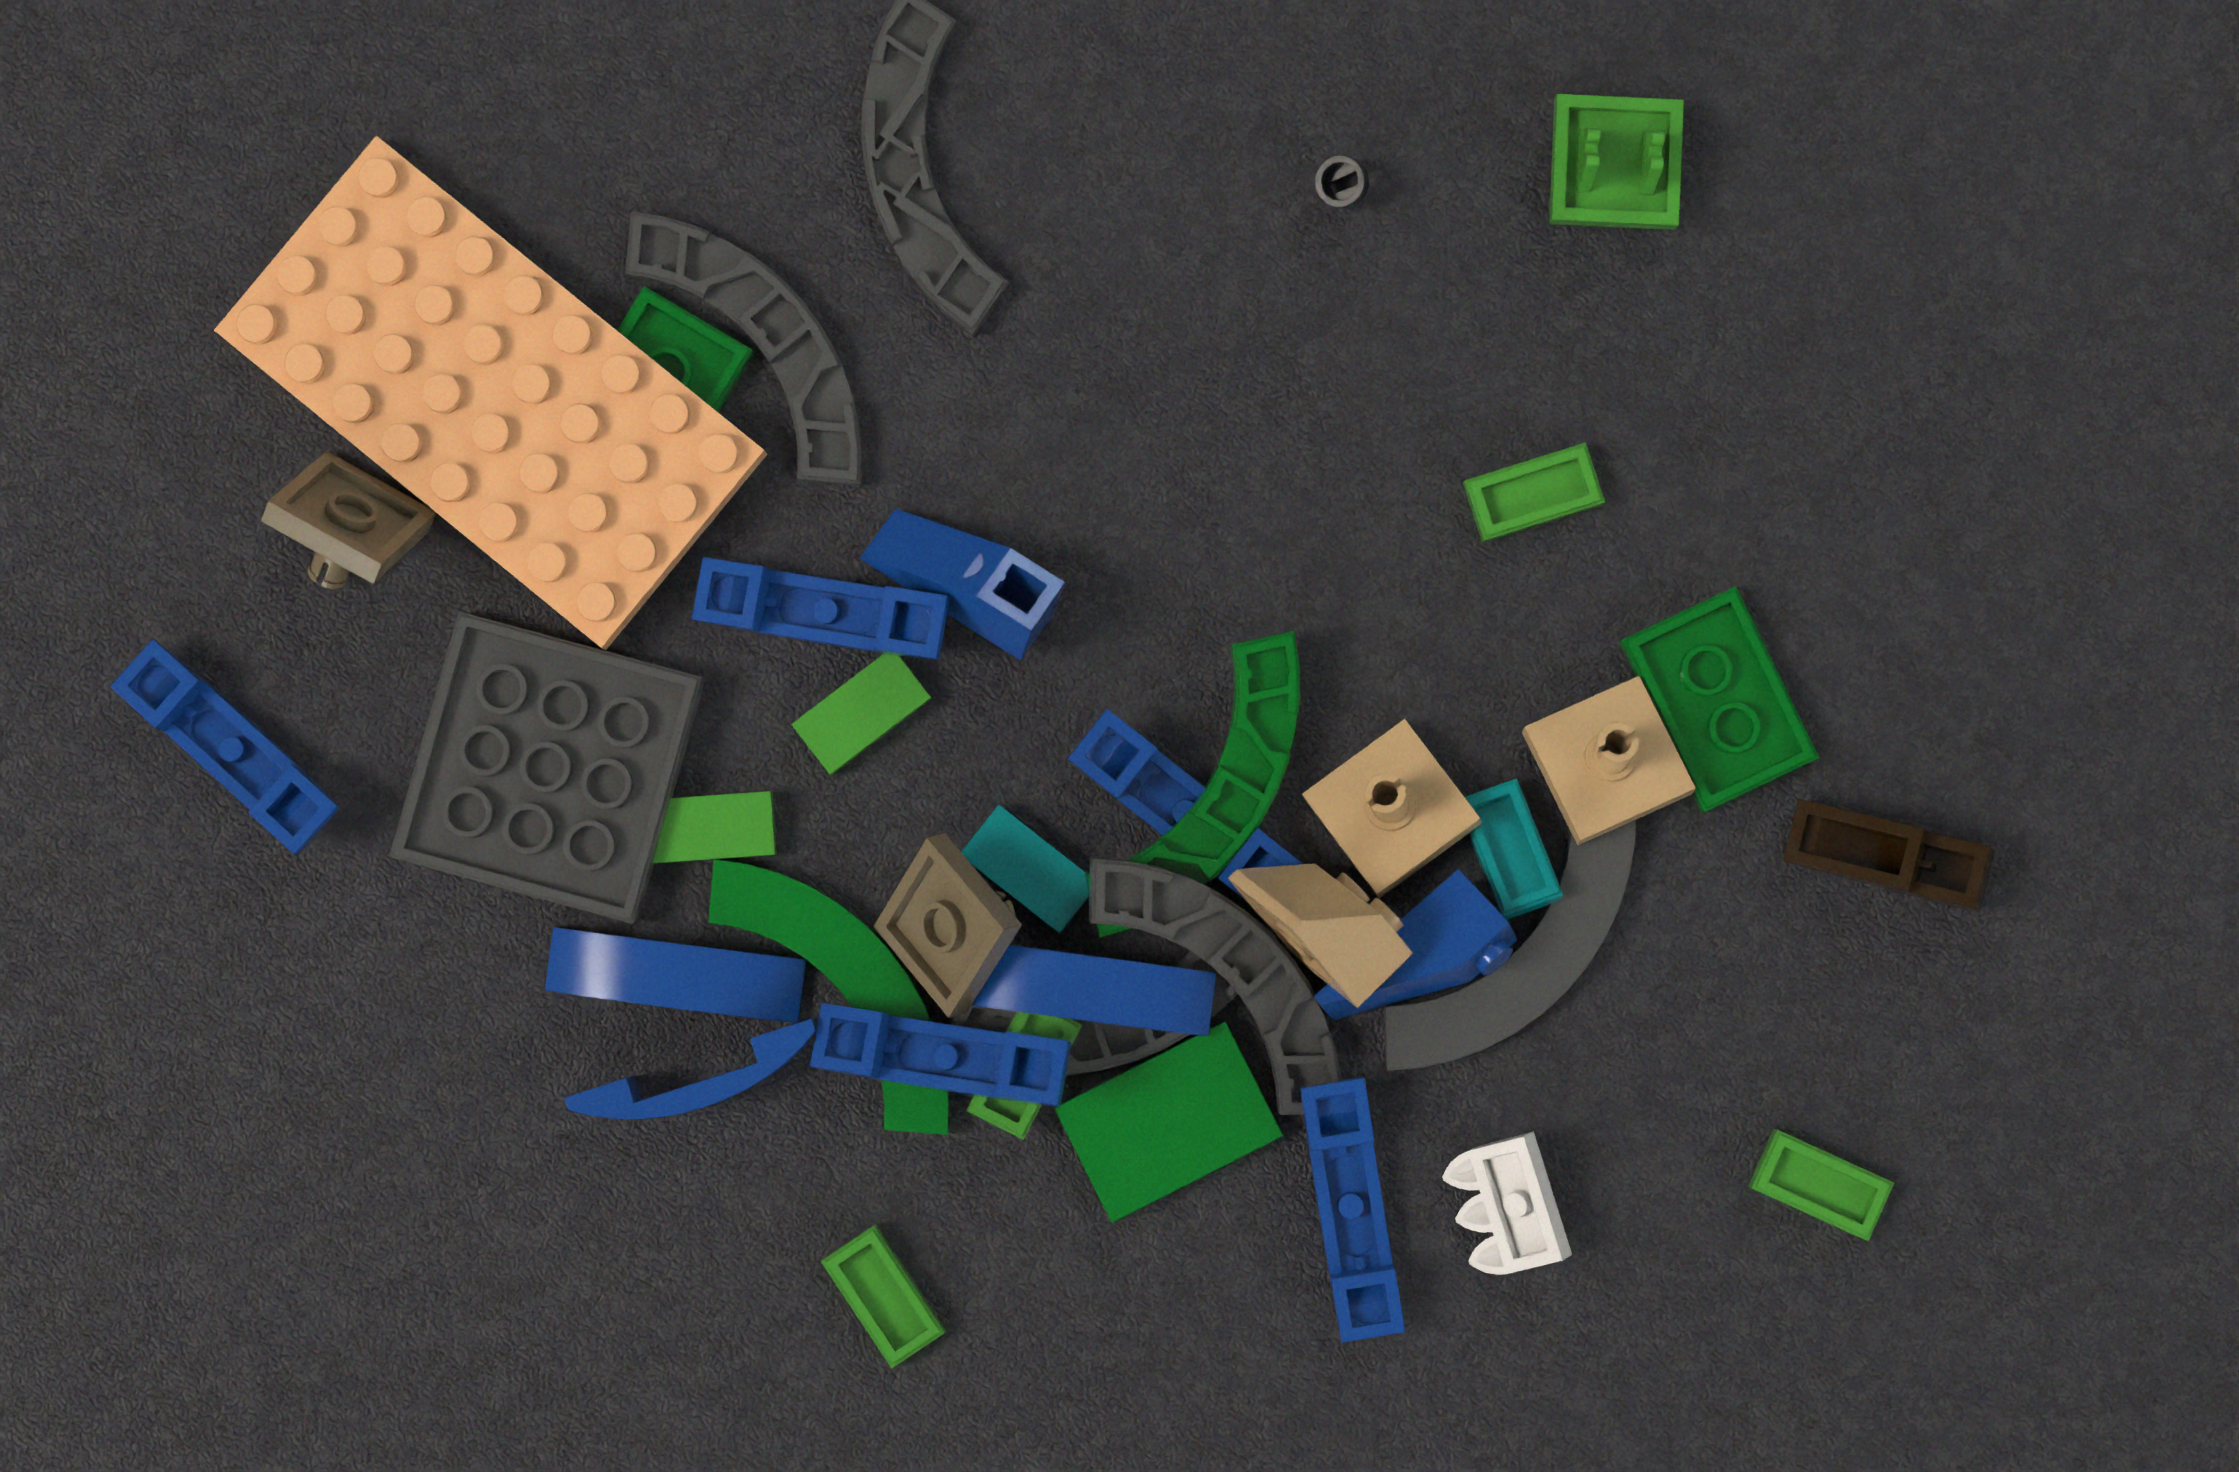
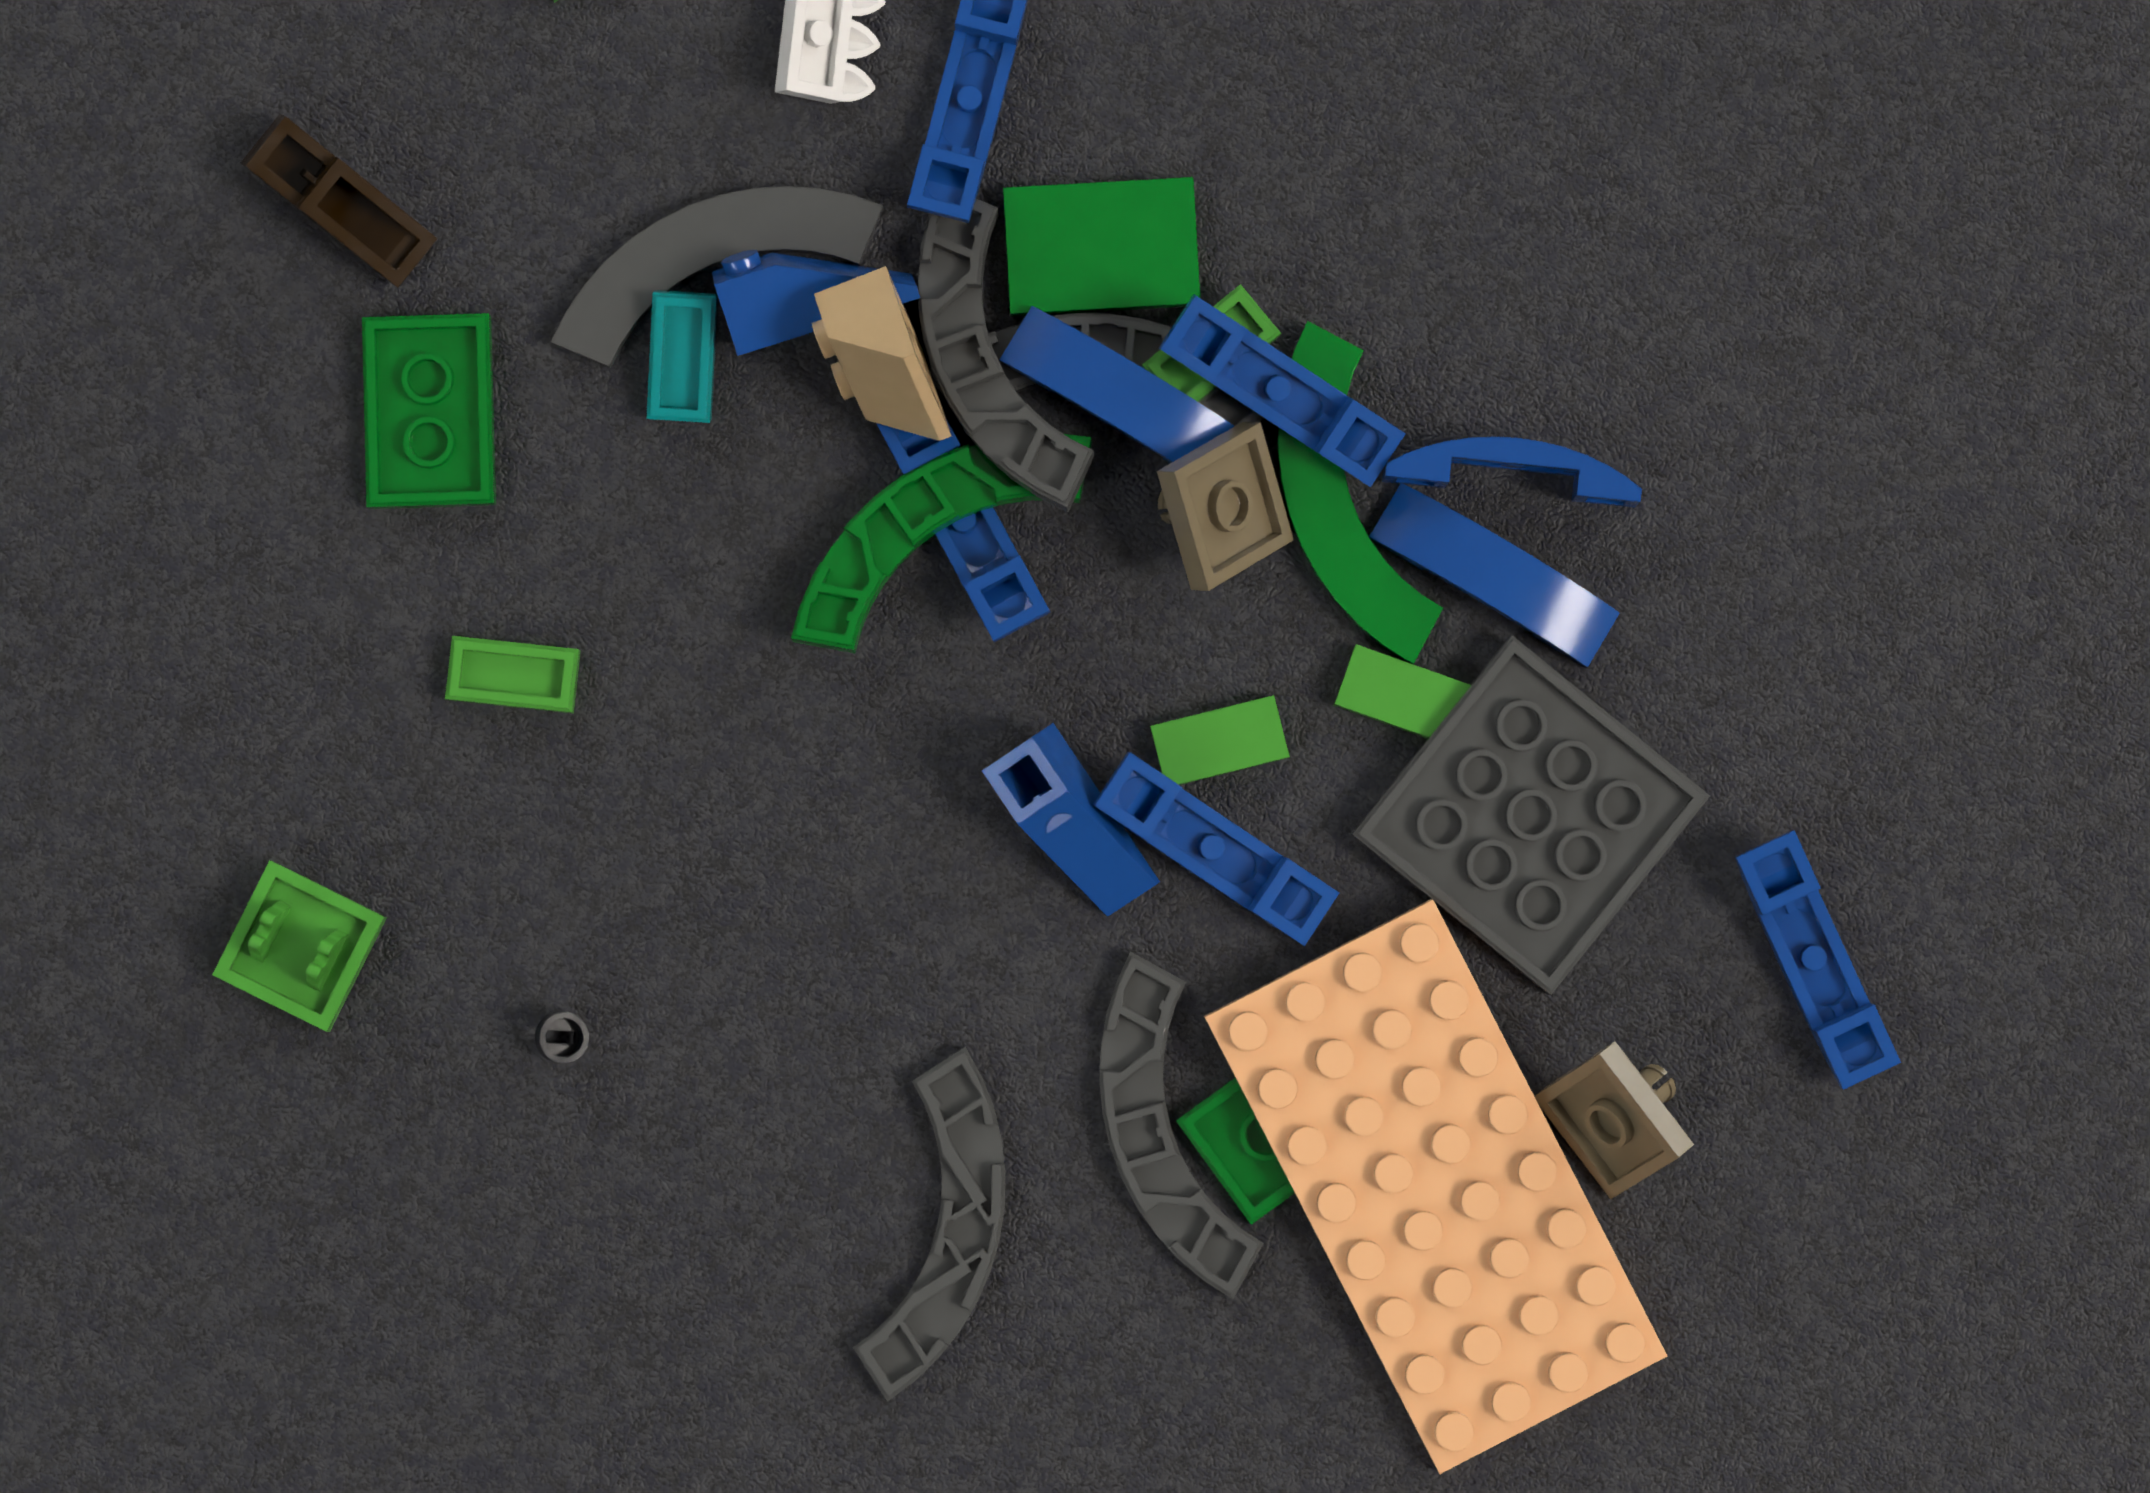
camera: 150 degrees left, 0 degrees up
(883, 1296) = (1429, 202): bright green tile -> none
(1028, 868) = (1129, 531): teal tile -> none
(1392, 808) = (773, 440): tan tile -> none
(1608, 760) = (555, 398): tan tile -> none

